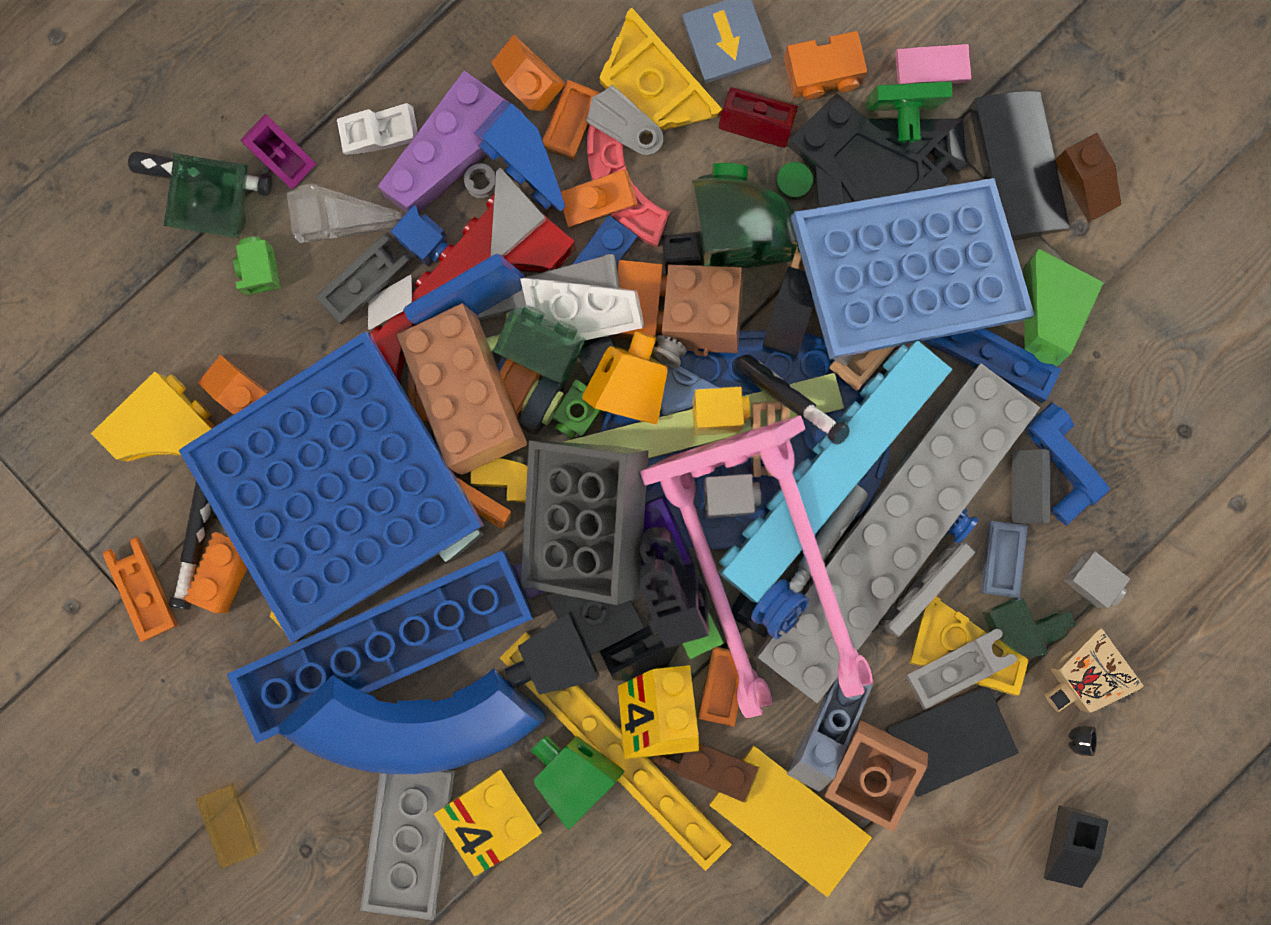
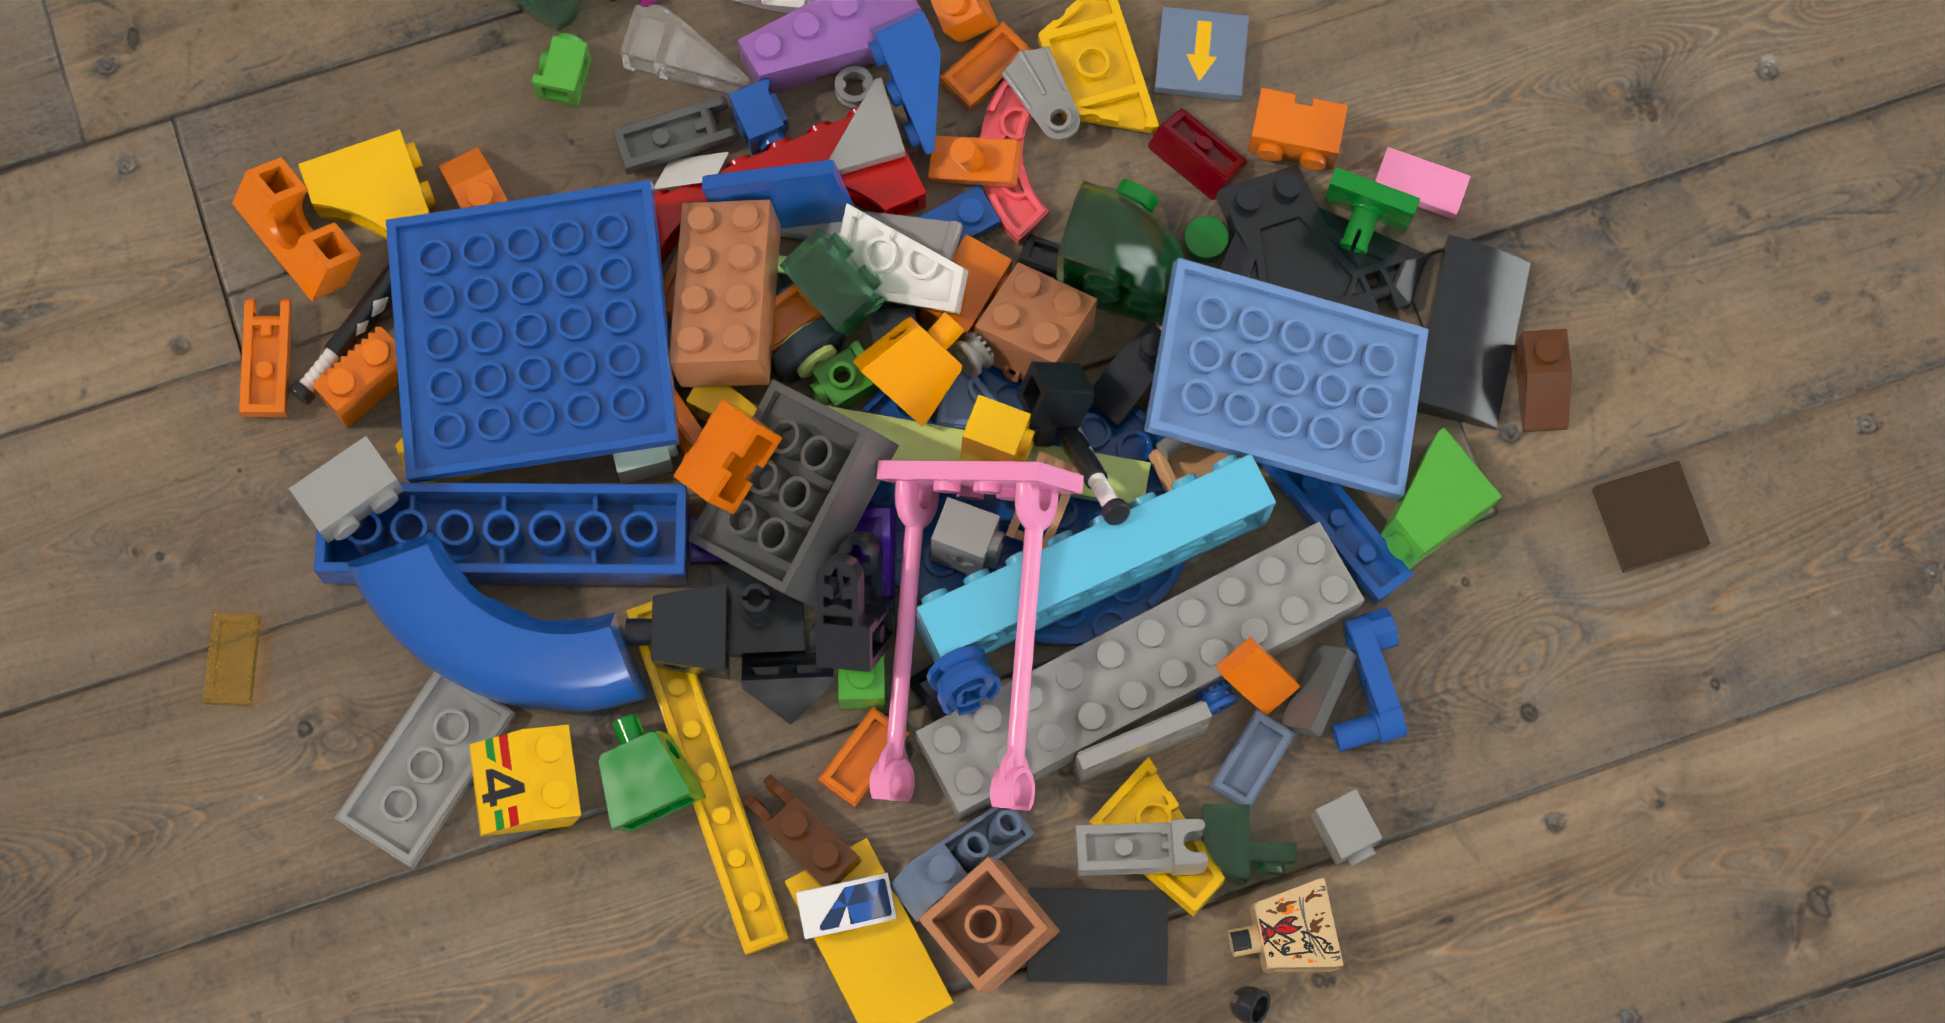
camera: 20 degrees right, 10 degrees down
(90, 474) = (273, 207): none -> orange arch
(251, 675) = (347, 490): none -> light grey brick
(522, 516) = (726, 456): none -> orange brick
(658, 713) = (777, 747): yellow slope -> none
(747, 359) = (1055, 397): none -> black brick
(766, 808) = (846, 905): none -> slope
(831, 533) = (1070, 633): light grey piece -> none
(986, 499) = (1258, 676): none -> orange tile
(1210, 245) = (1650, 516): none -> dark brown tile

